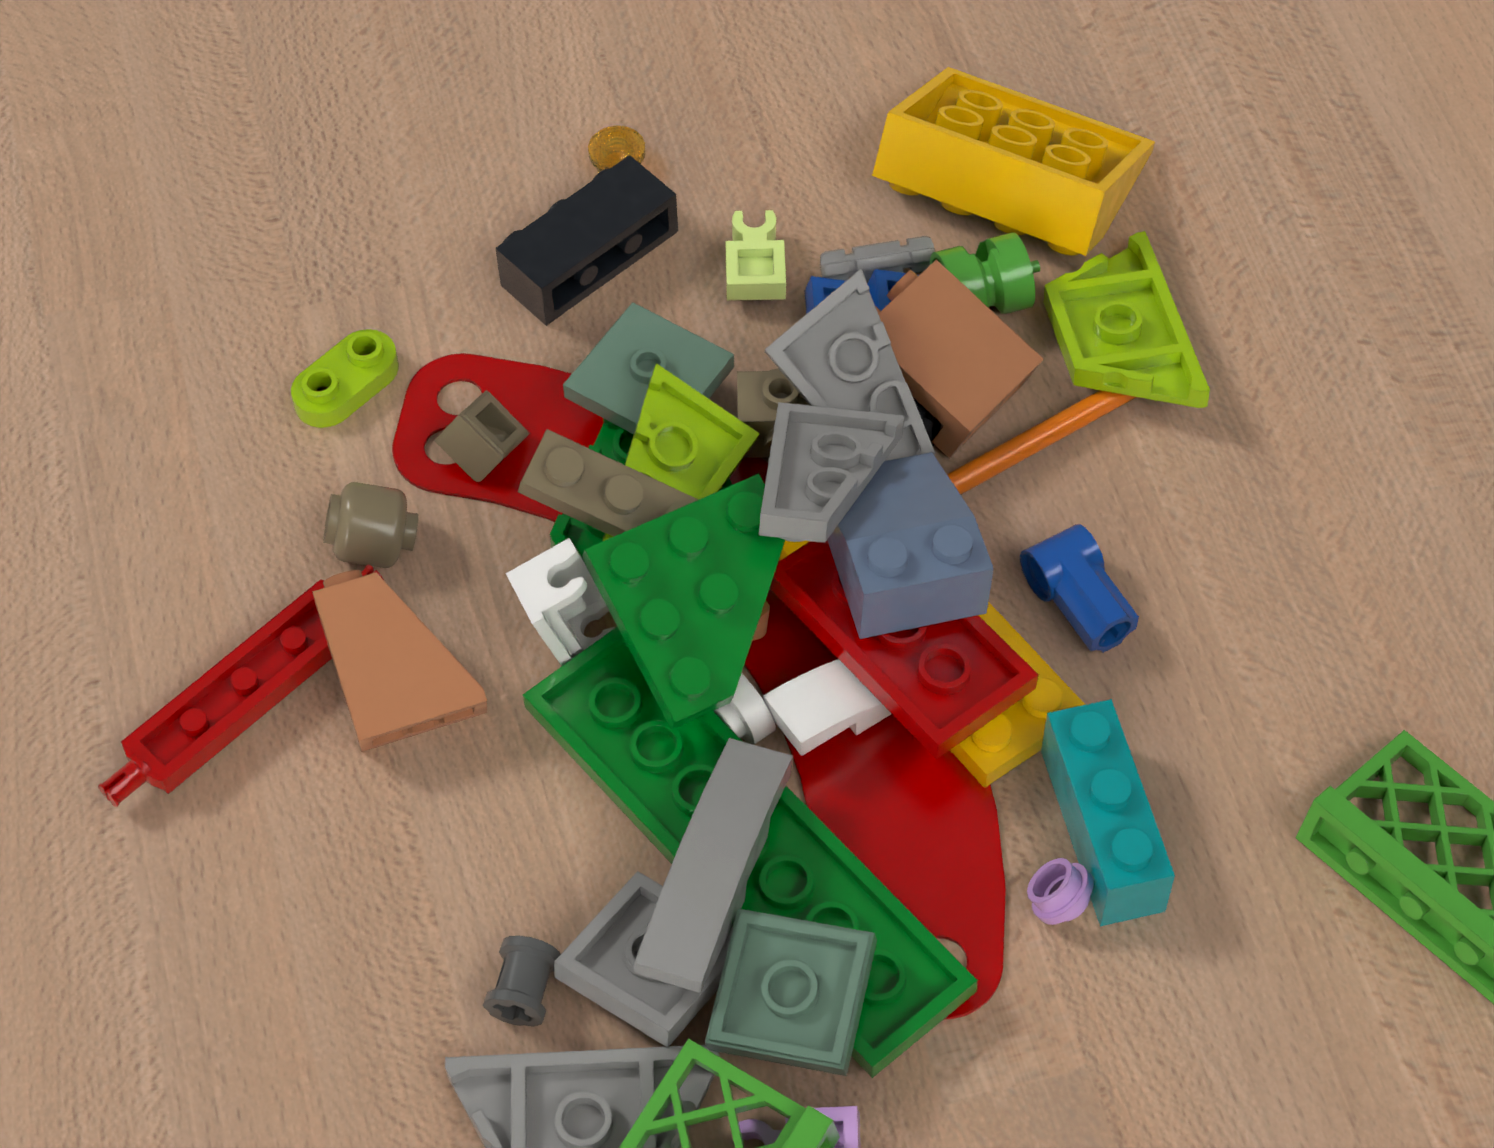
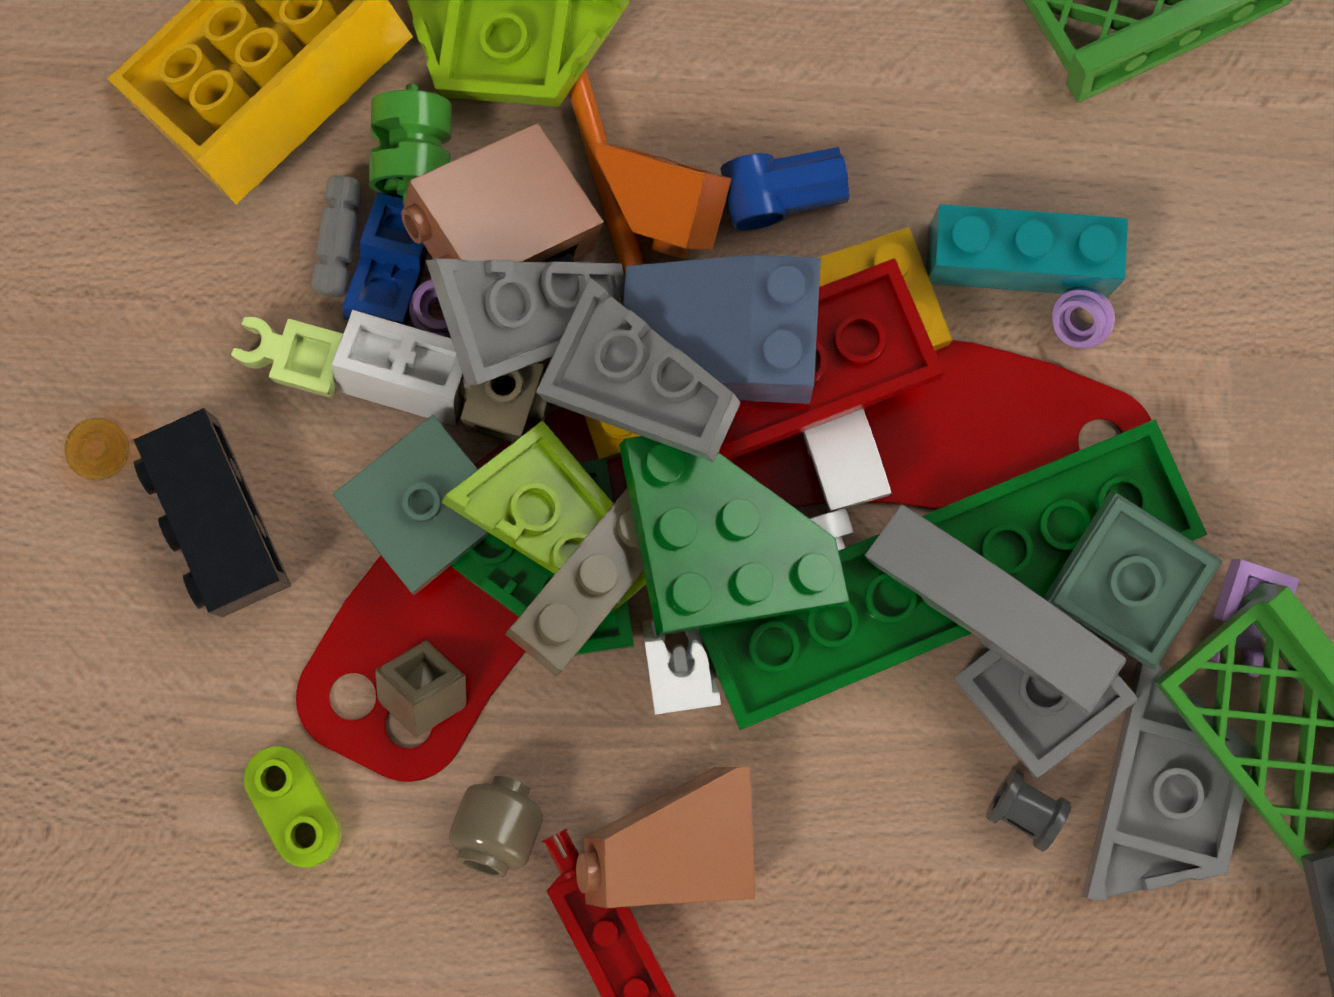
camera: 75 degrees left, 25 degrees up
(766, 310) = (399, 367): none -> white hinge
(1020, 485) = (665, 198): none -> orange slope

